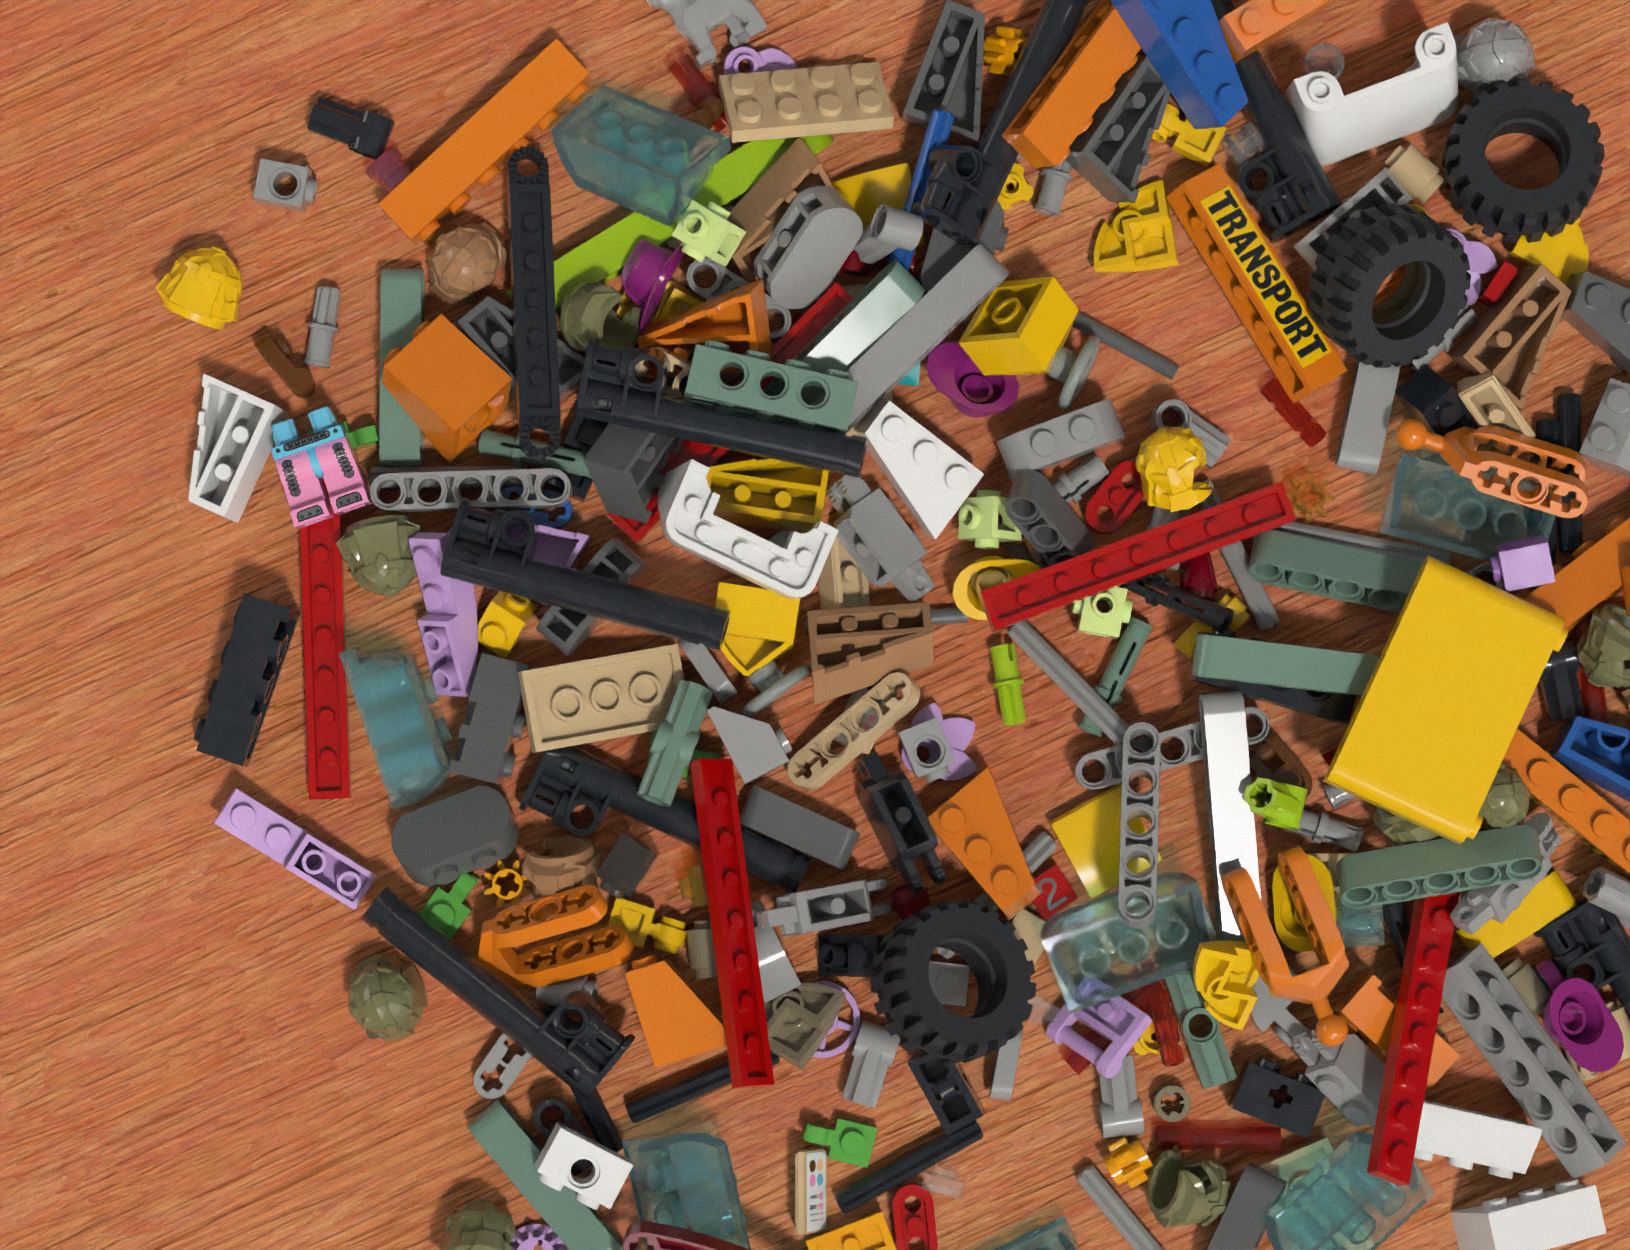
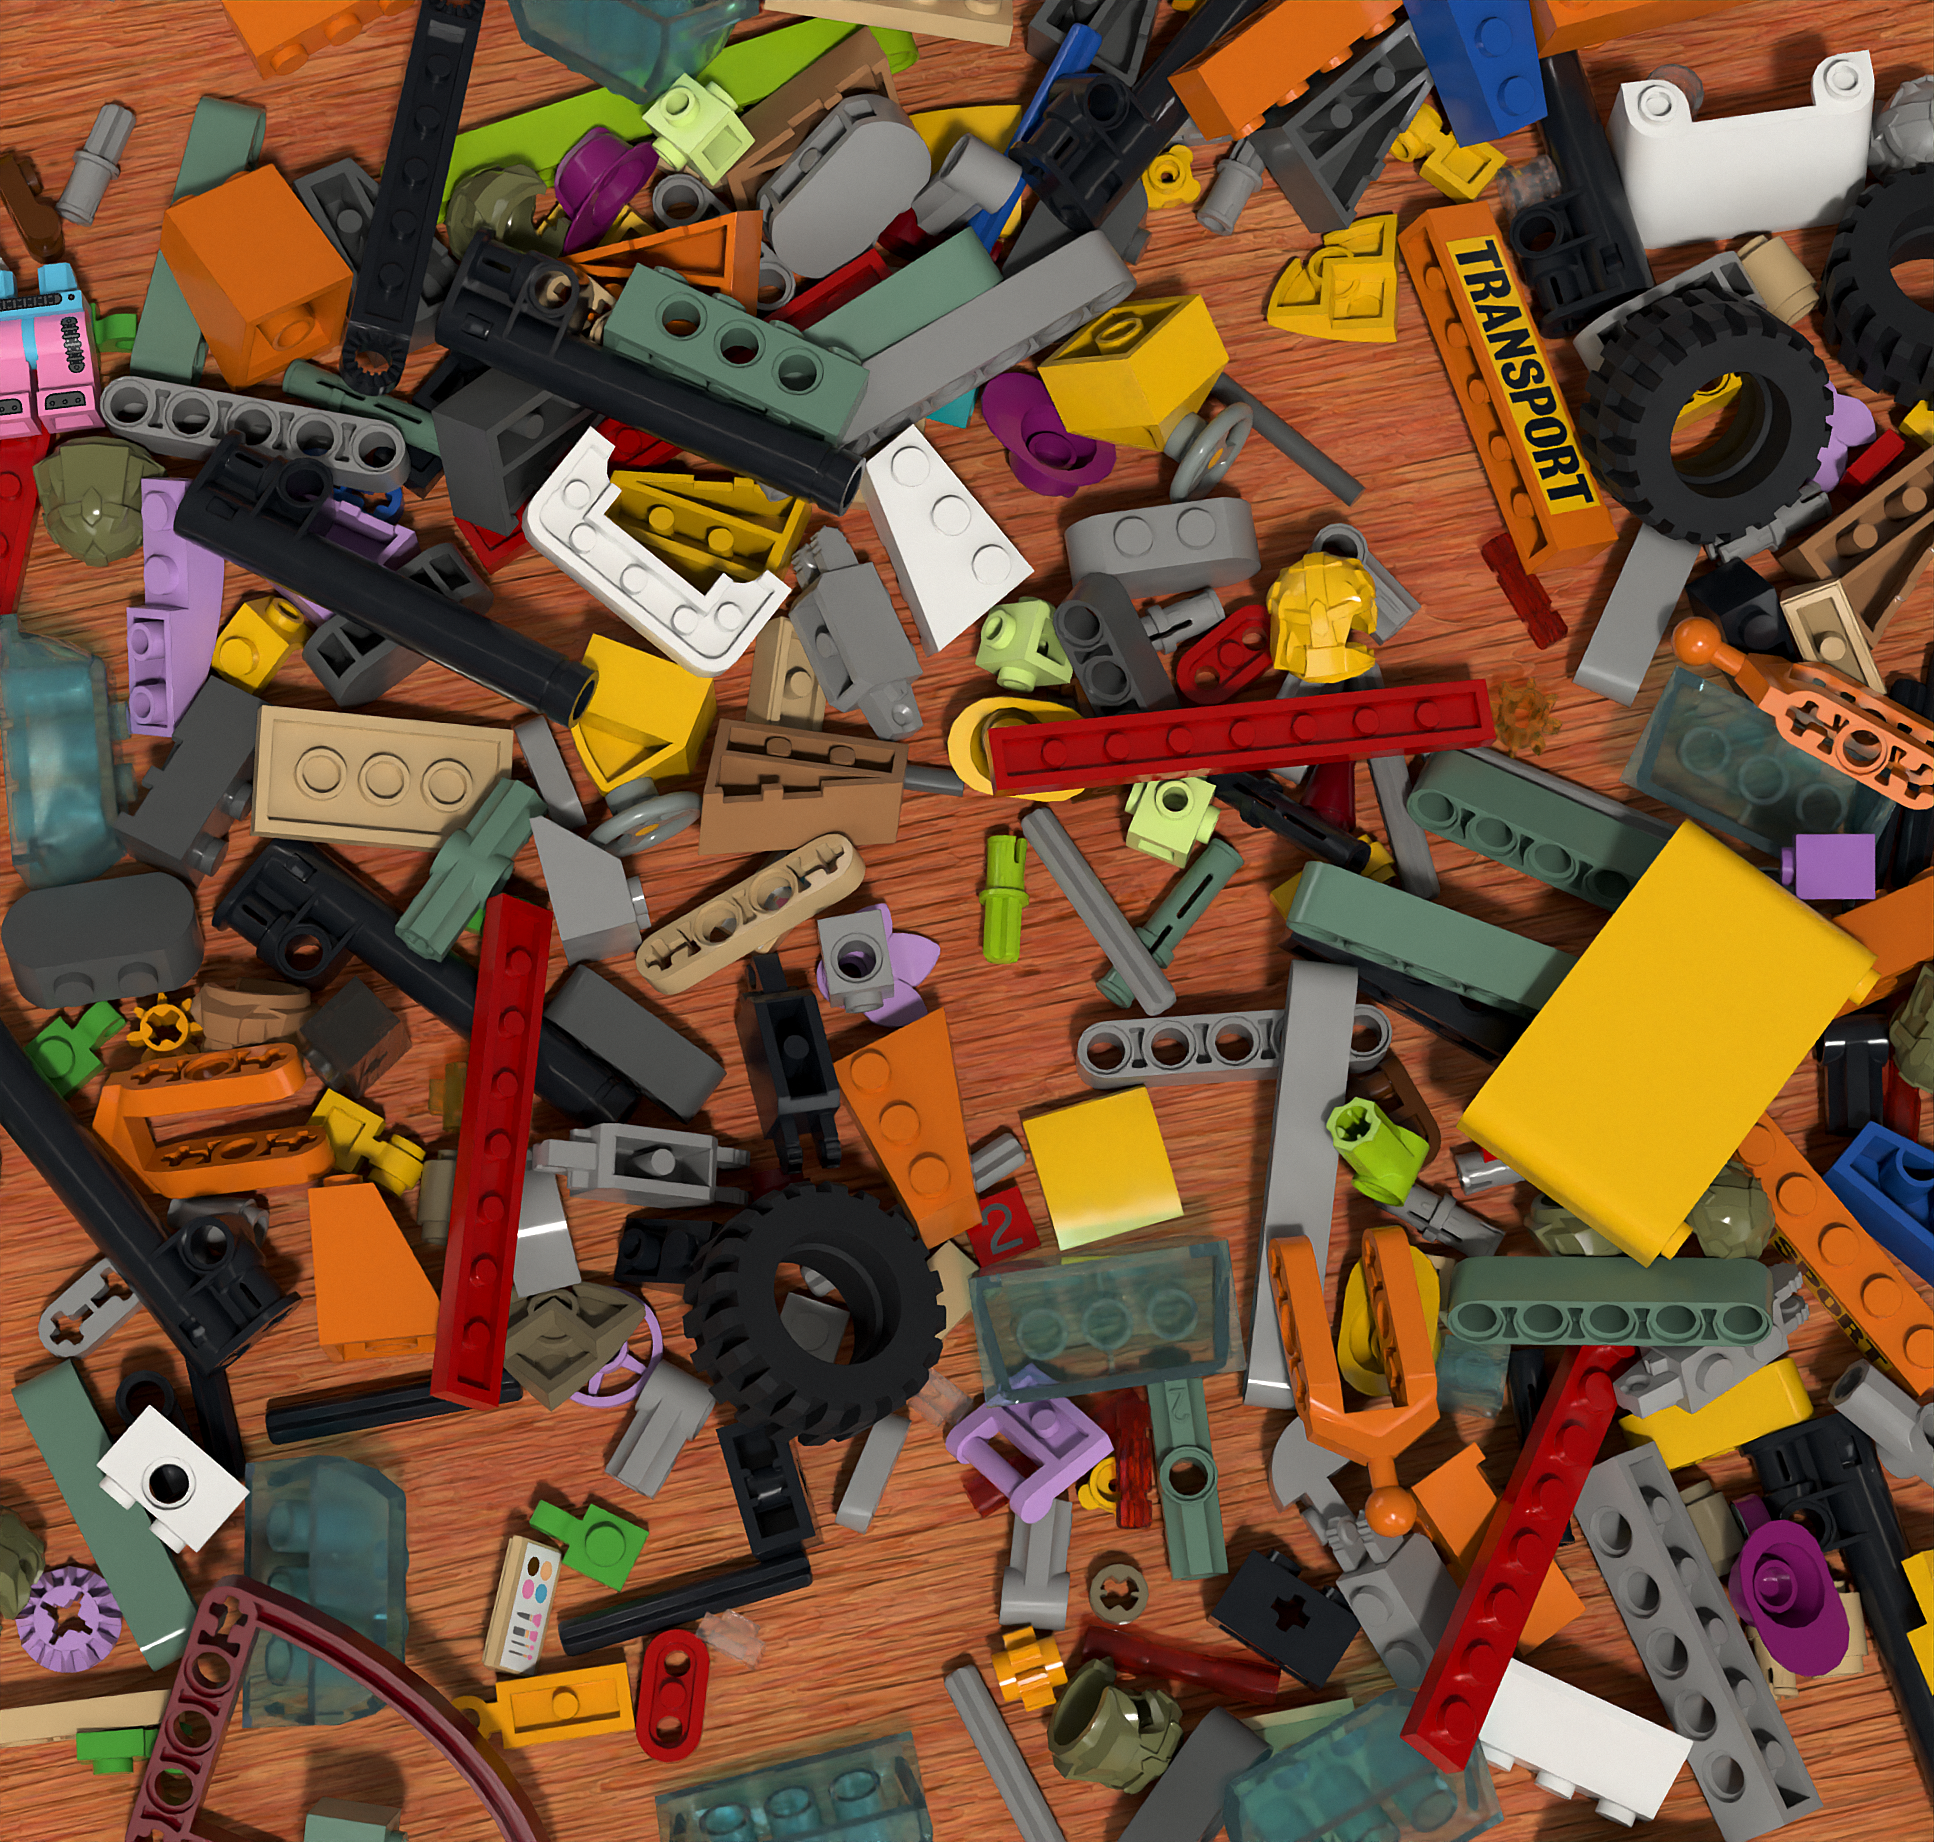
camera: 10 degrees right, 10 degrees down
(465, 261) = (330, 107): medium nougat helmet -> none
(1139, 805) = (1150, 1162): light grey beam -> none
(1225, 979) = (1242, 1409): yellow brick -> none

